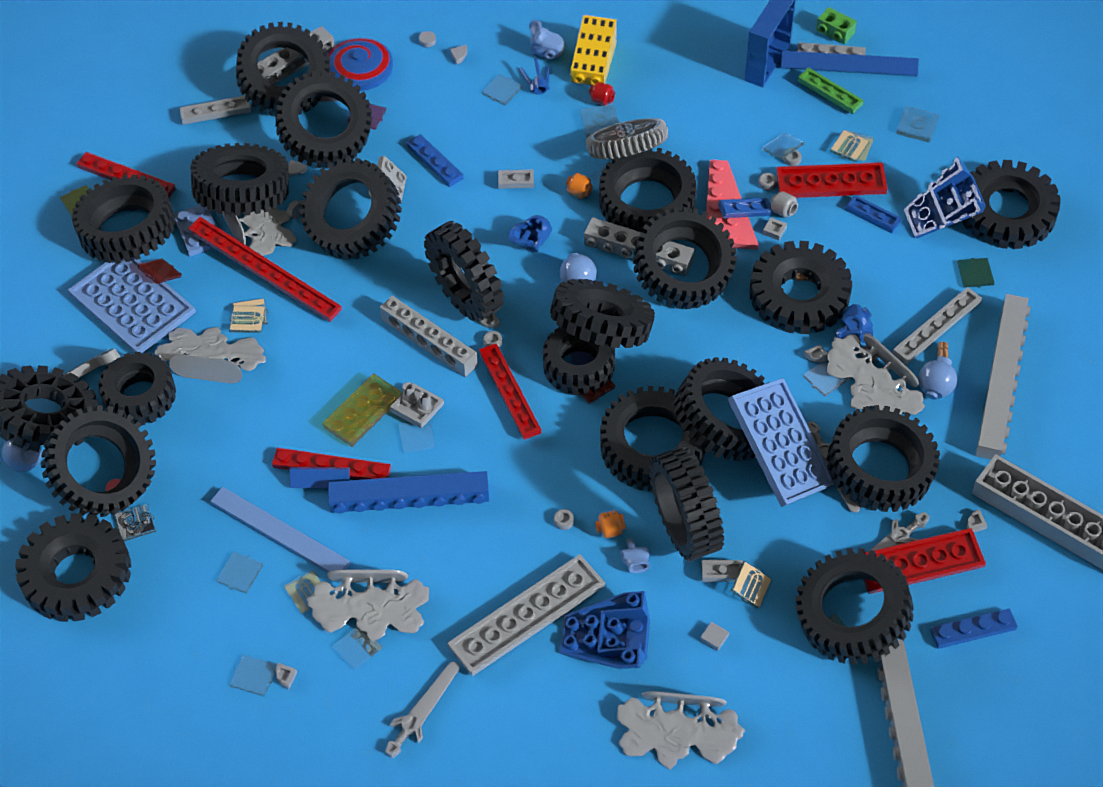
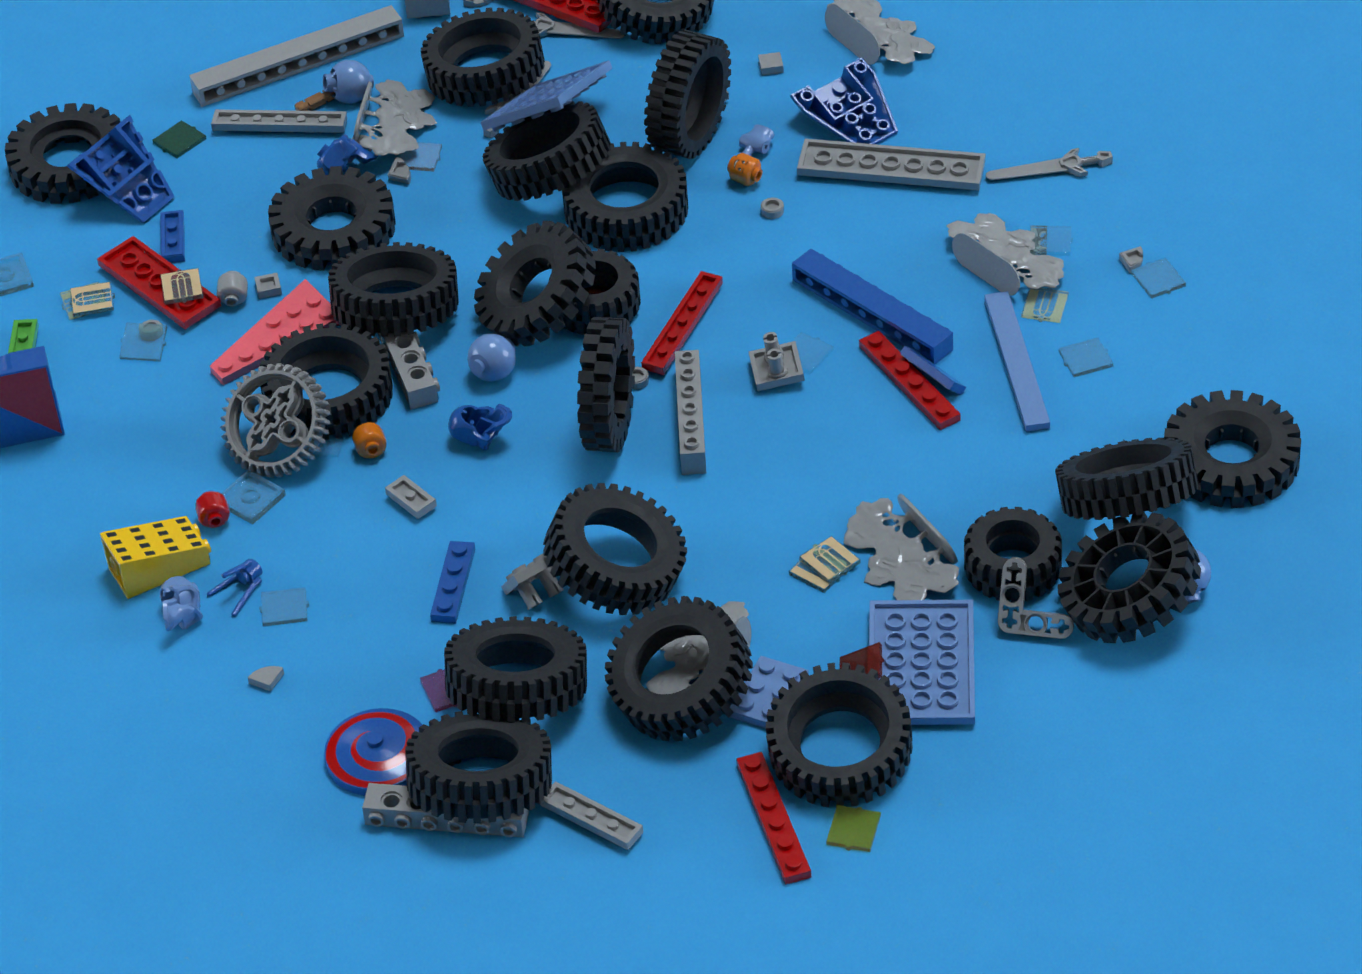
camera: 130 degrees left, 10 degrees down
(265, 269) = (759, 587): red plate -> none
(296, 168) = (596, 682): light grey tile -> none
(362, 410) = (826, 399): clear yellow plate -> none
(427, 39) = (271, 722): light grey tile -> none
(745, 208) = (268, 308): blue tile -> none
(767, 181) = (206, 327): light grey tile -> none
(810, 182) = (181, 286): none -> piece

